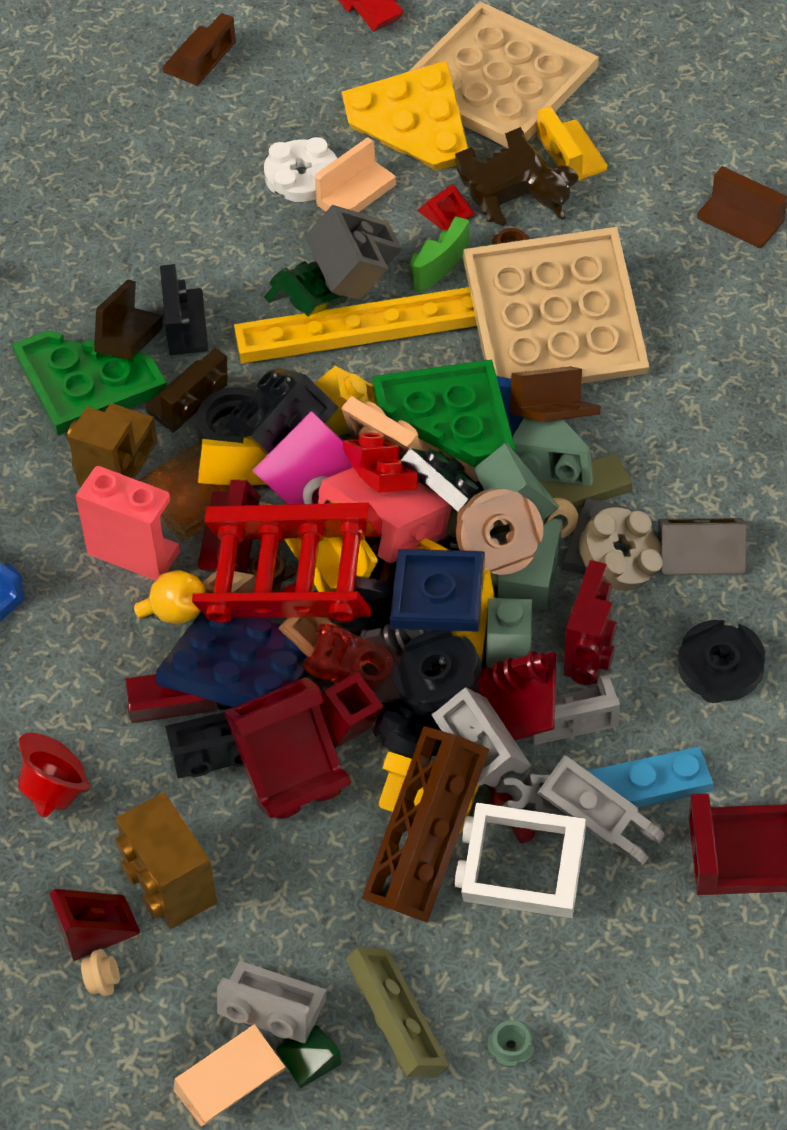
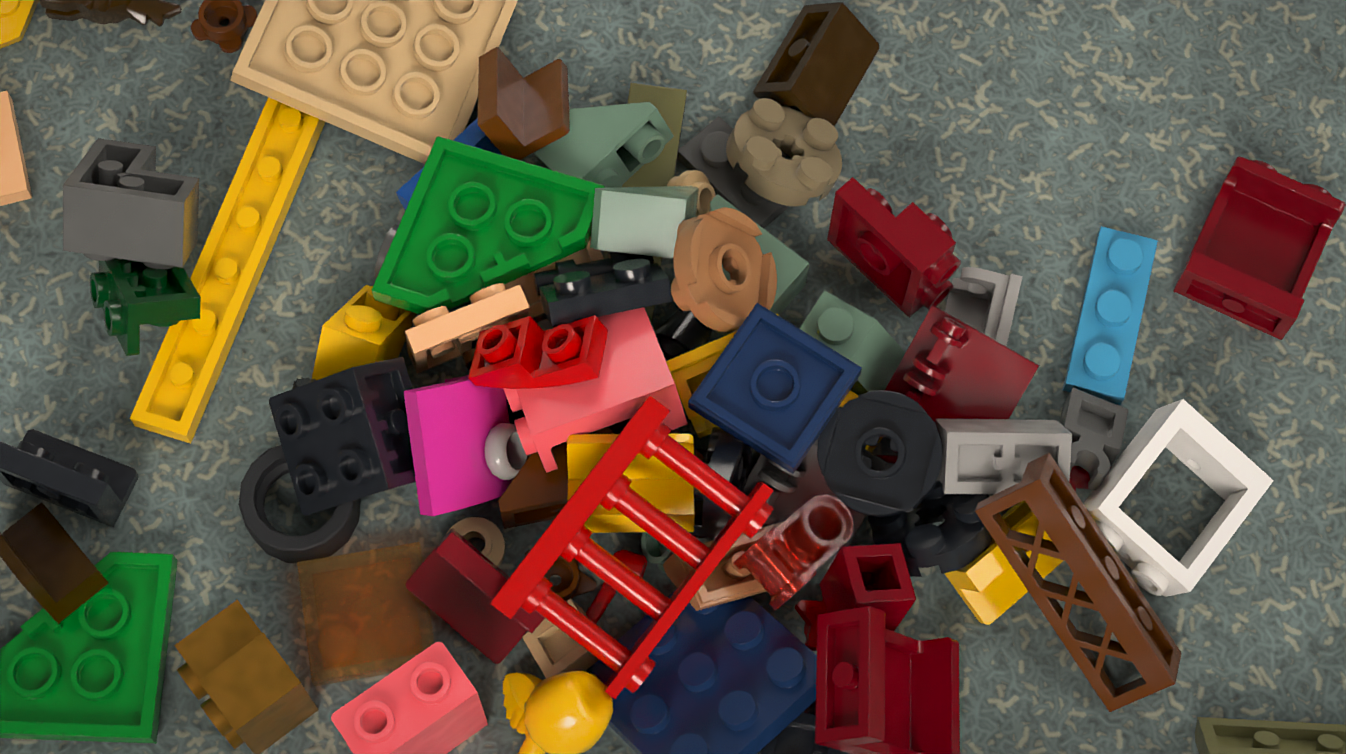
camera: 65 degrees left, 15 degrees up
(186, 392) = (201, 533): dark brown bracket -> none
(229, 461) = (378, 537): yellow slope -> none
(439, 257) = (190, 127): bright green slope -> none
(445, 206) = (104, 62): red slope -> none
(605, 811) = (1141, 381): light grey hinge -> none
(721, 682) = (987, 168): black plate -> none

